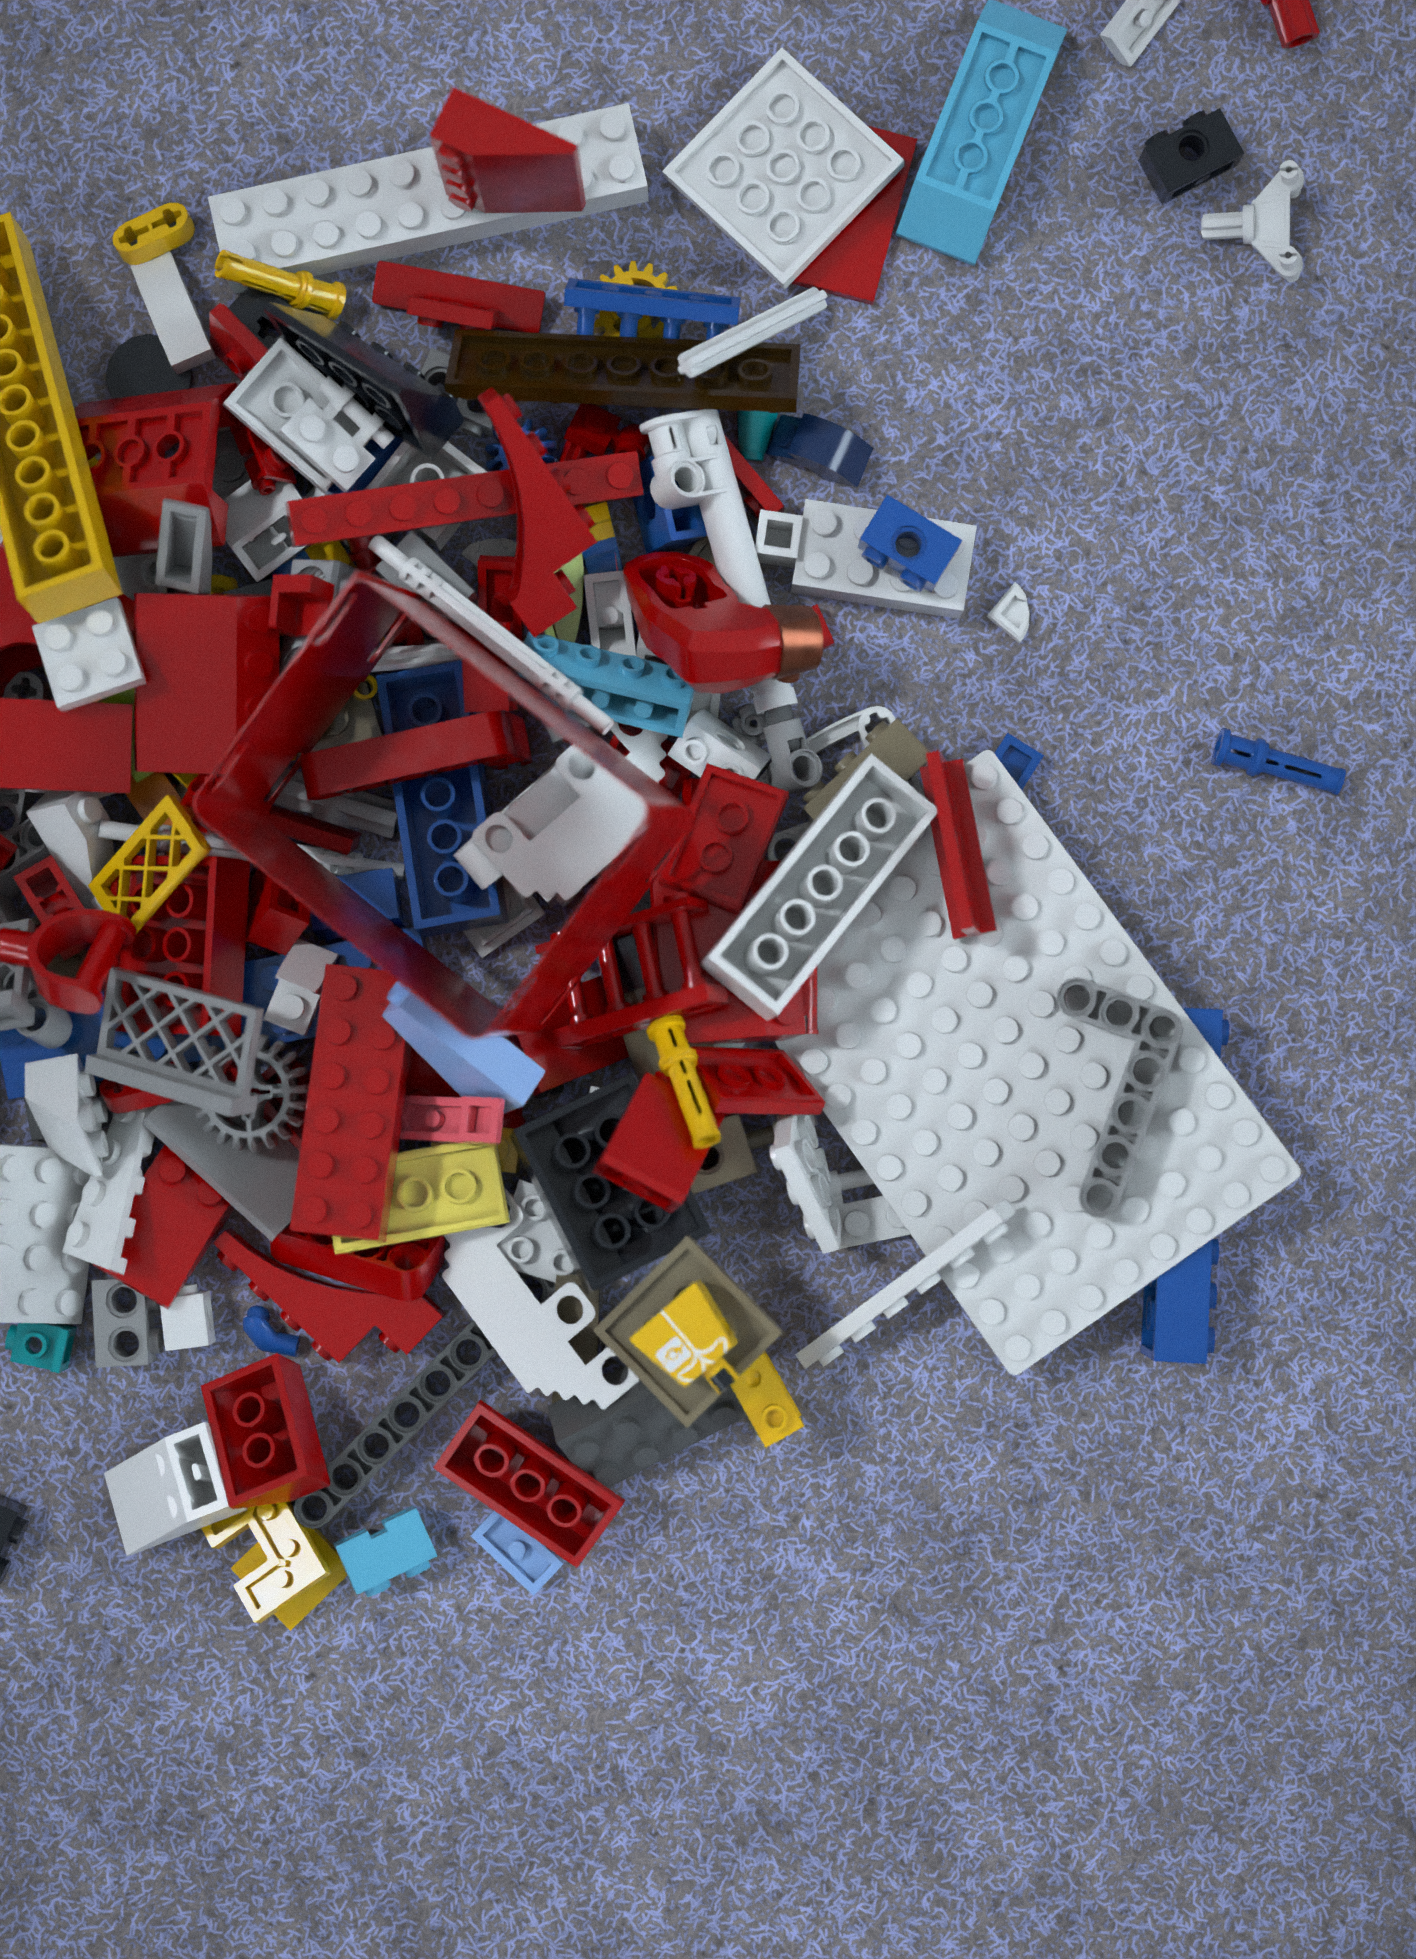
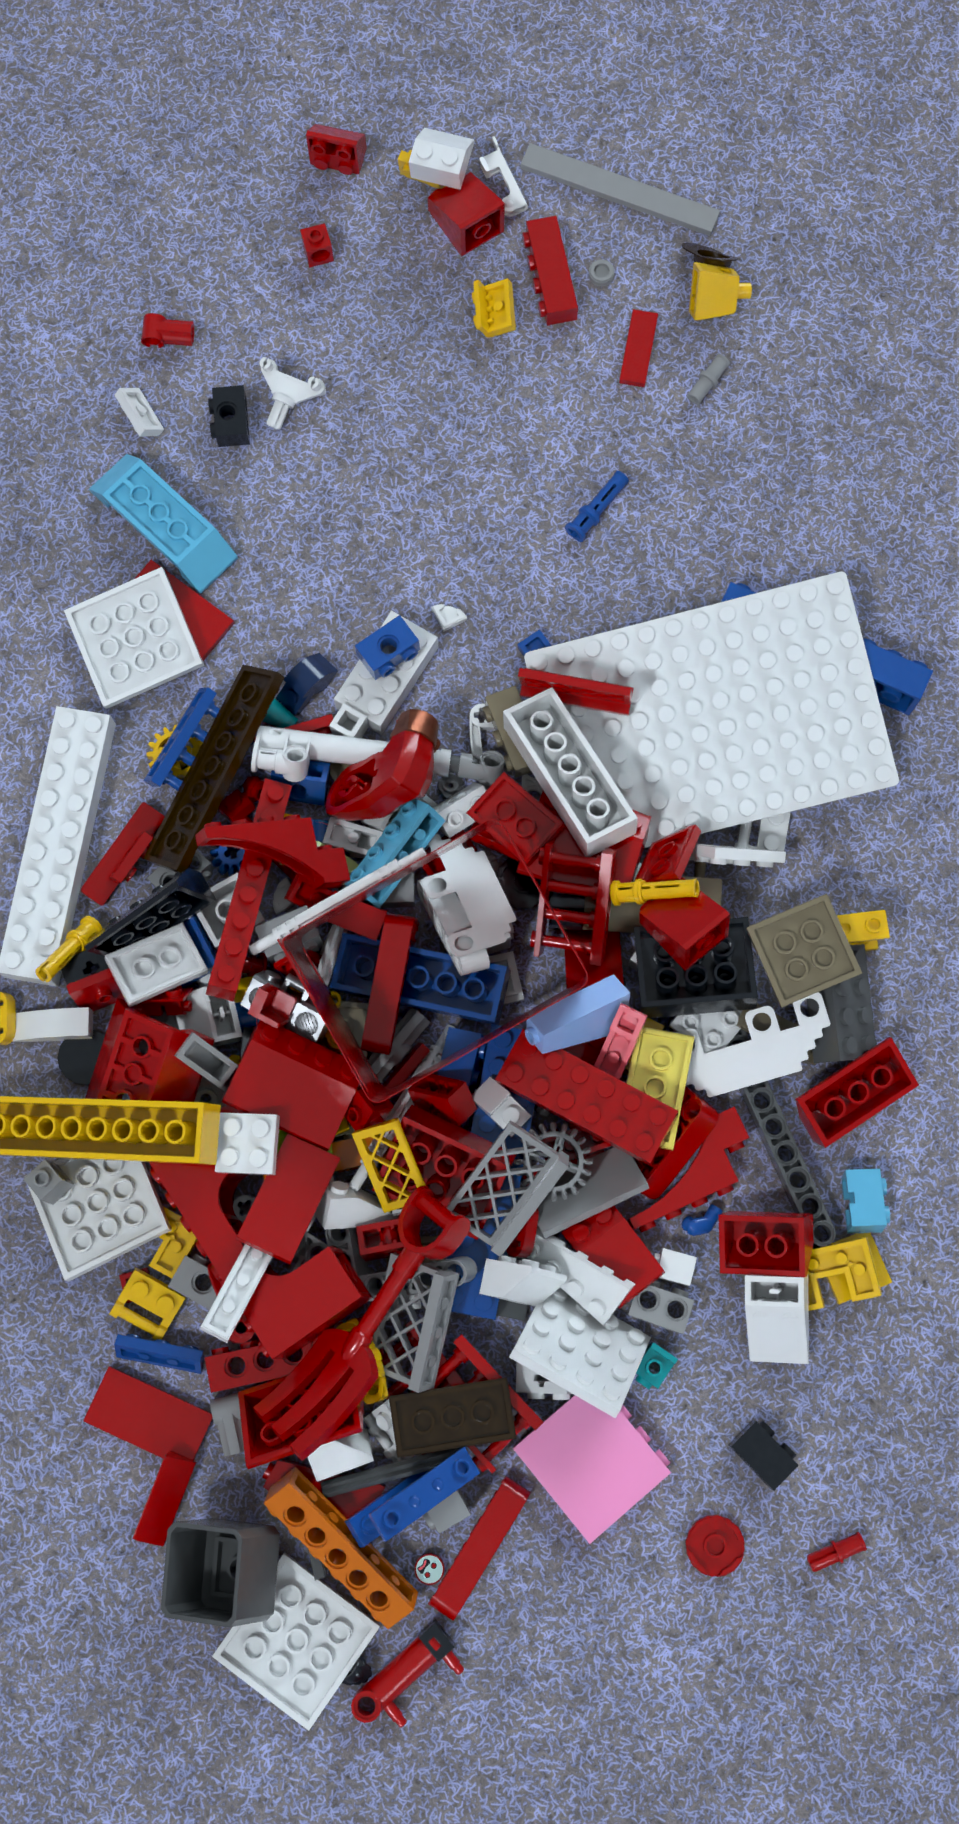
camera: 65 degrees left, 10 degrees down
(327, 443) = (181, 954): white plate -> none
(503, 161) = (65, 774): red slope -> none
(517, 1552) = (892, 1122): light blue plate -> none
(690, 1339) = (811, 946): yellow torso -> none
(751, 332) = (224, 687): white axle -> none
(920, 1276) = (820, 810): white plate -> none
(1129, 1088) = (756, 646): light grey beam -> none

